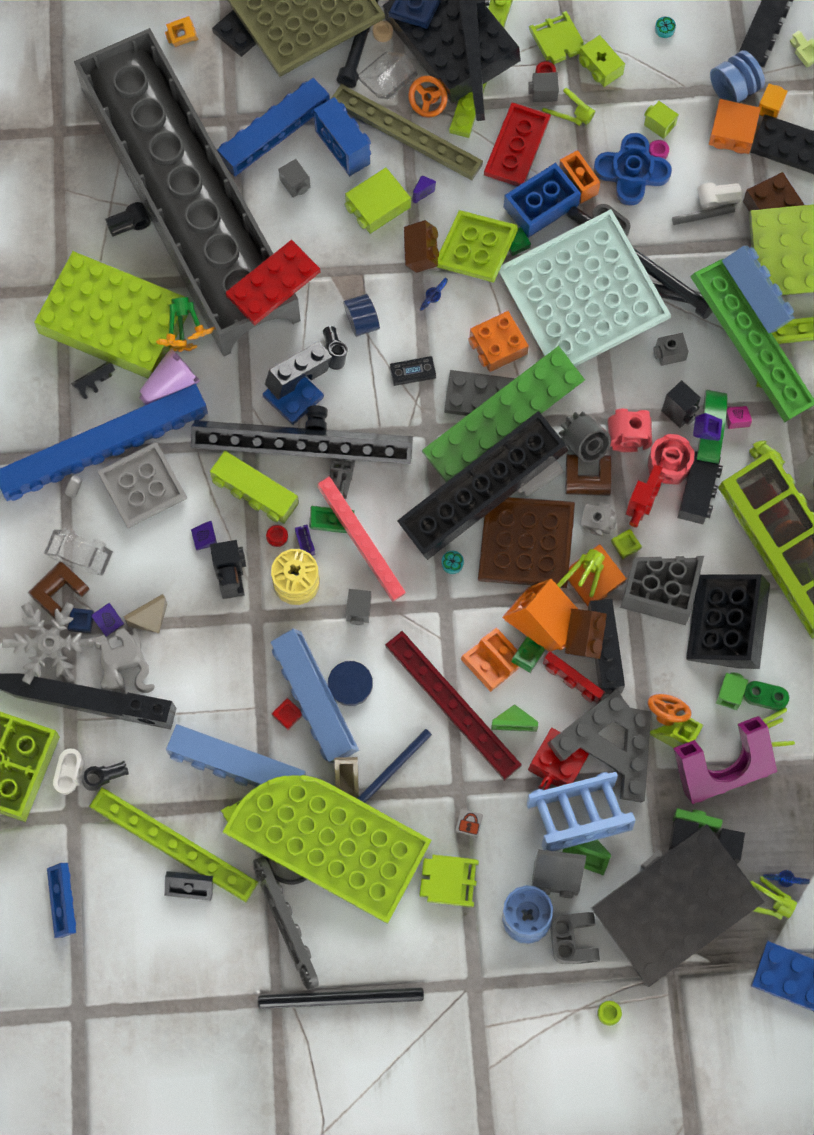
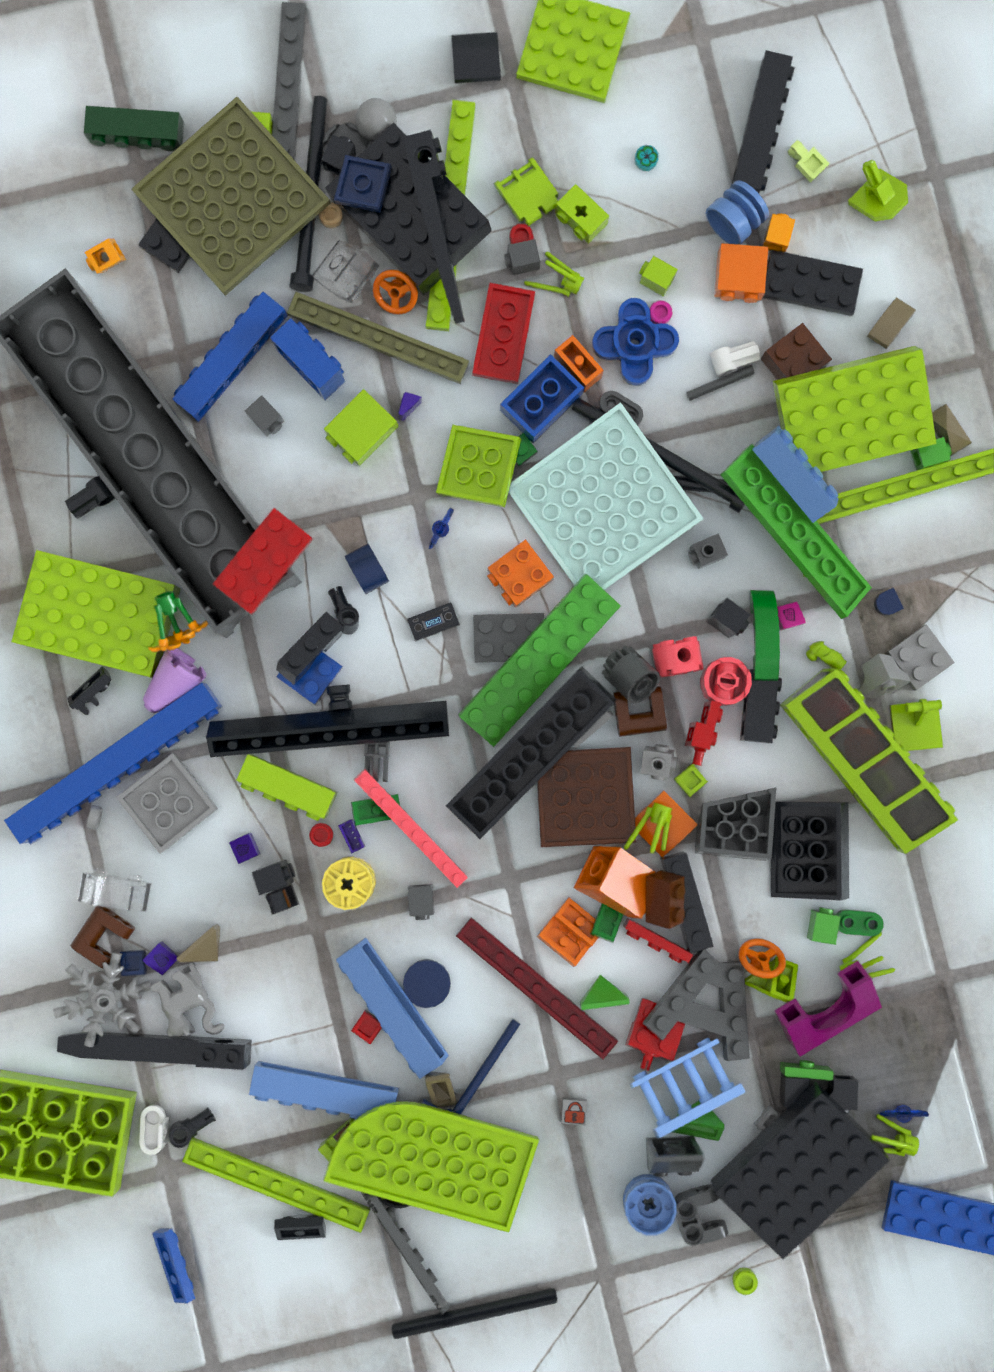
camera: 10 degrees left, 15 degrees up
(421, 246) = (417, 476): reddish brown brick -> none
(448, 880) = (562, 1176): lime plate -> none
(452, 562) = (511, 832): tile -> none
(707, 427) = (761, 645): dark purple slope -> none

